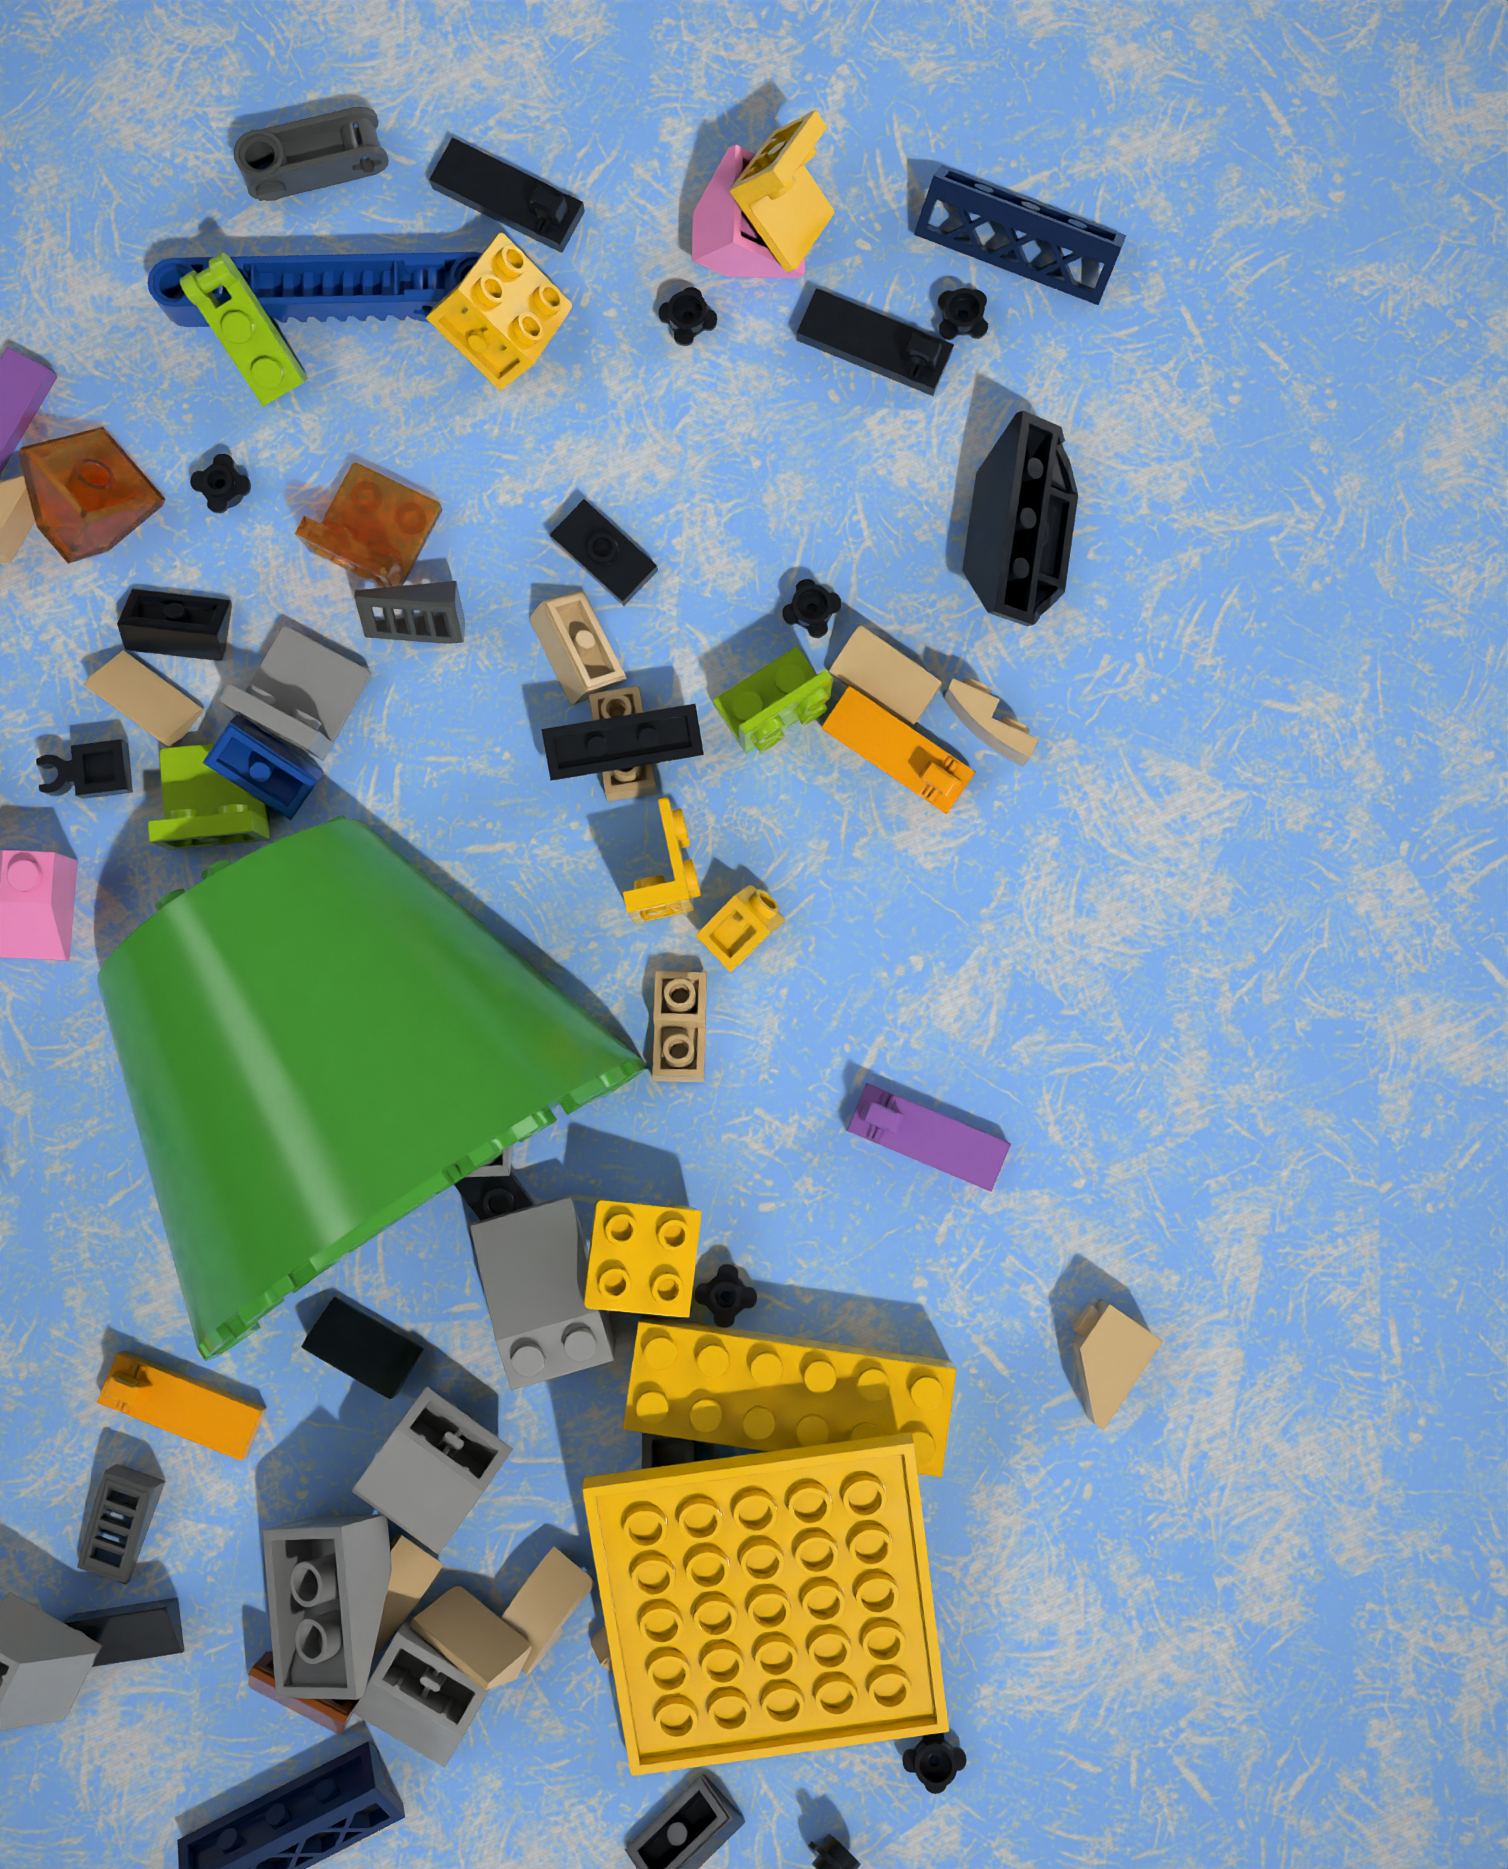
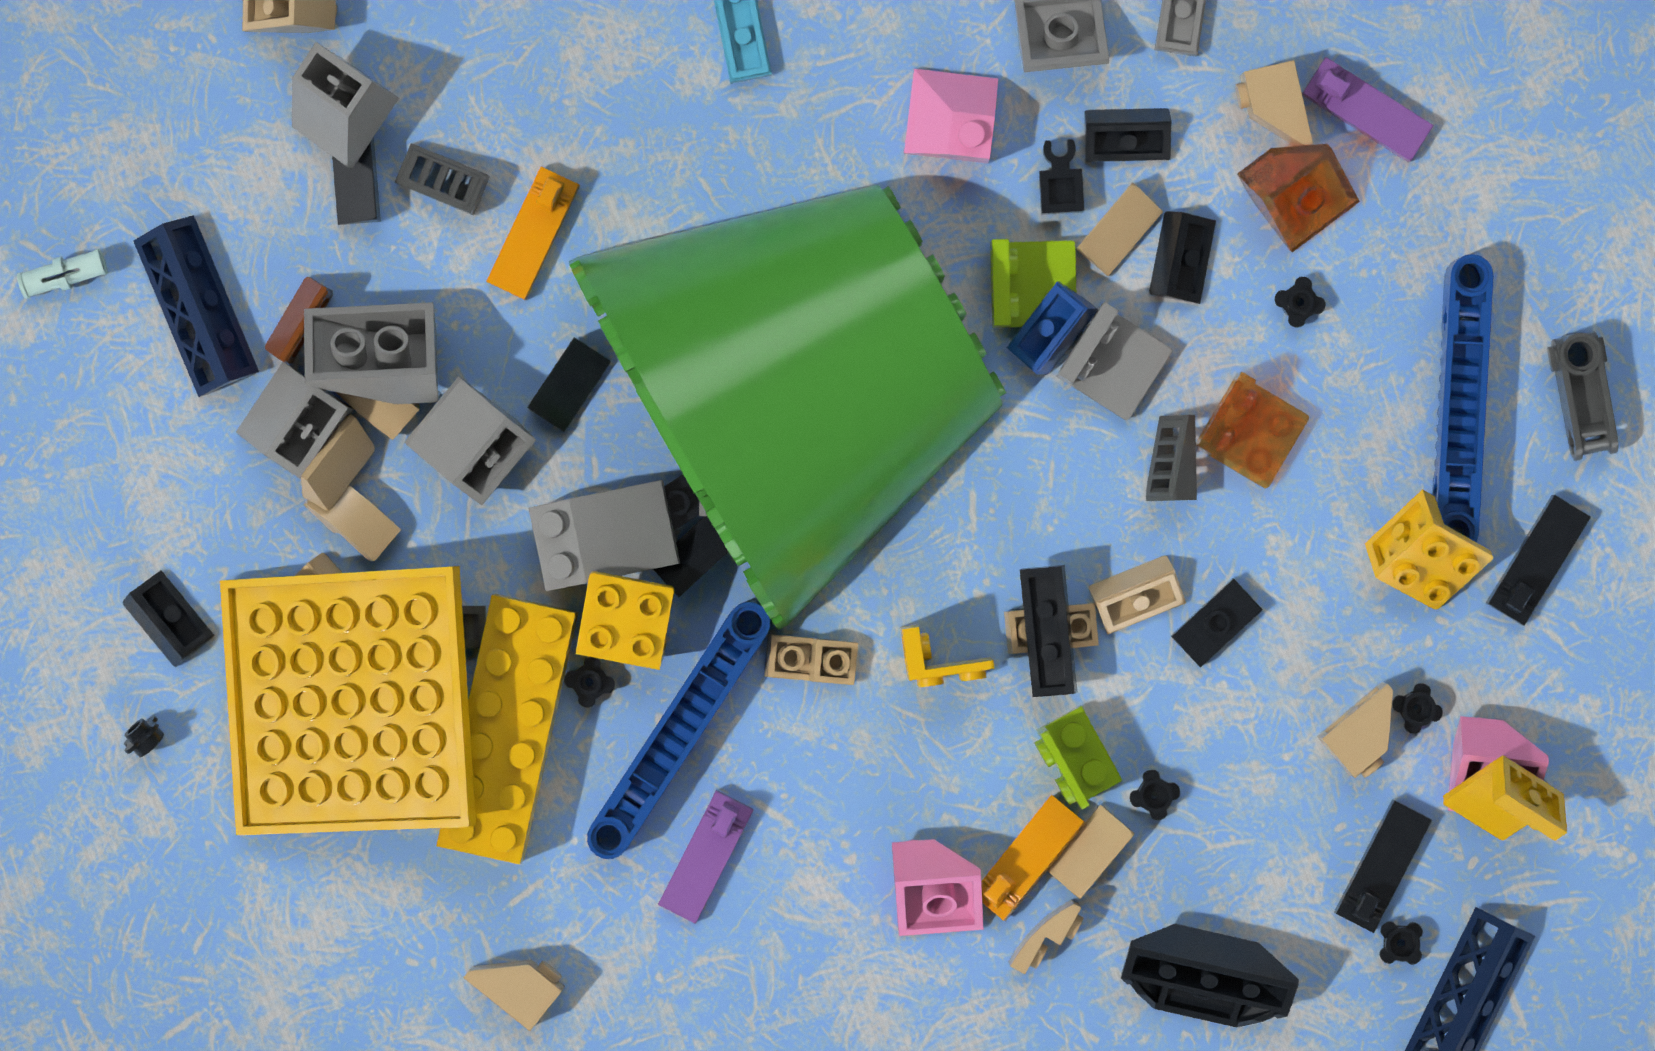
camera: 90 degrees right, 5 degrees up
(36, 697) = (1127, 134): none -> black slope
(244, 329) = (1424, 335): lime plate -> none
(560, 1172) = (697, 553): none -> black slope
(719, 373) = (1362, 733): none -> tan slope
(741, 926) = (889, 716): yellow bracket -> none
(776, 1182) = (678, 731): none -> blue gear
(938, 1775) = (201, 821): black plate -> none
(944, 856) = (935, 889): none -> bright pink slope

